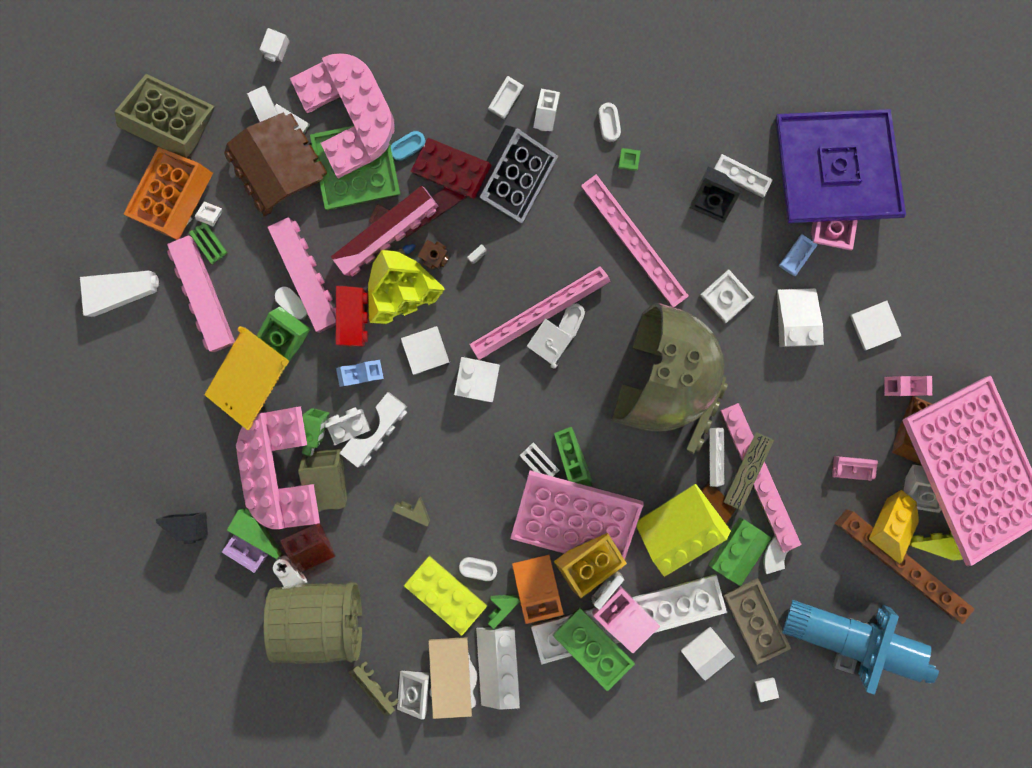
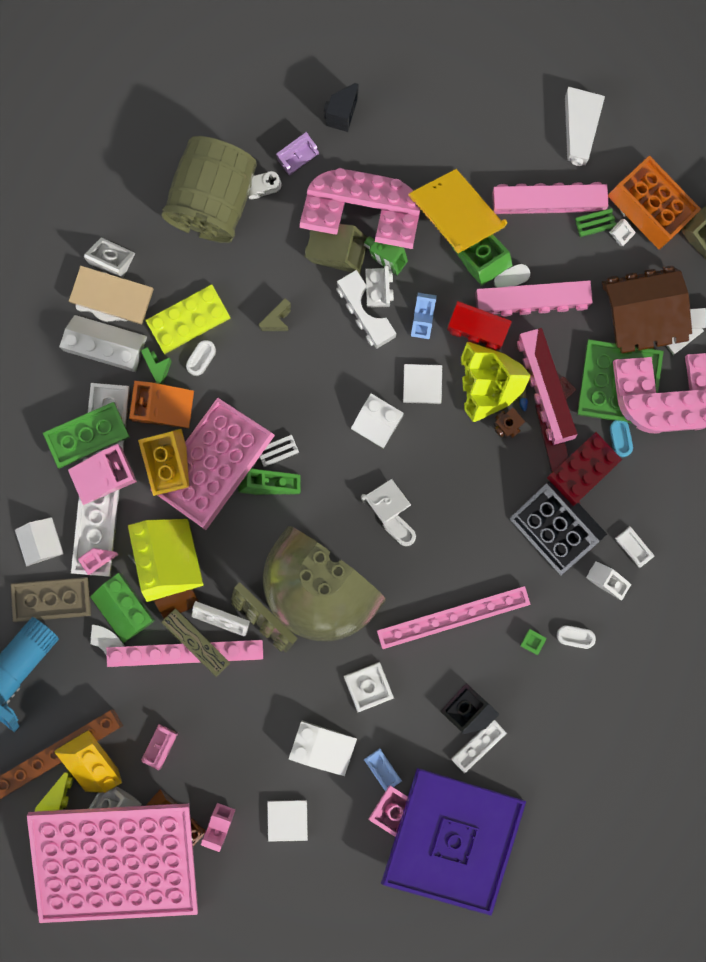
camera: 105 degrees right, 5 degrees down
(253, 532) = (311, 167): bright green slope -> none
(308, 547) = (280, 210): clear red slope -> none
(373, 689) = (128, 221): olive plate -> none
(477, 254) = (494, 464): white tile -> none
(540, 312) = (418, 500): bright pink plate -> none
(607, 589) = (136, 468): white tile -> none
(706, 594) = (95, 559): none -> bright pink tile

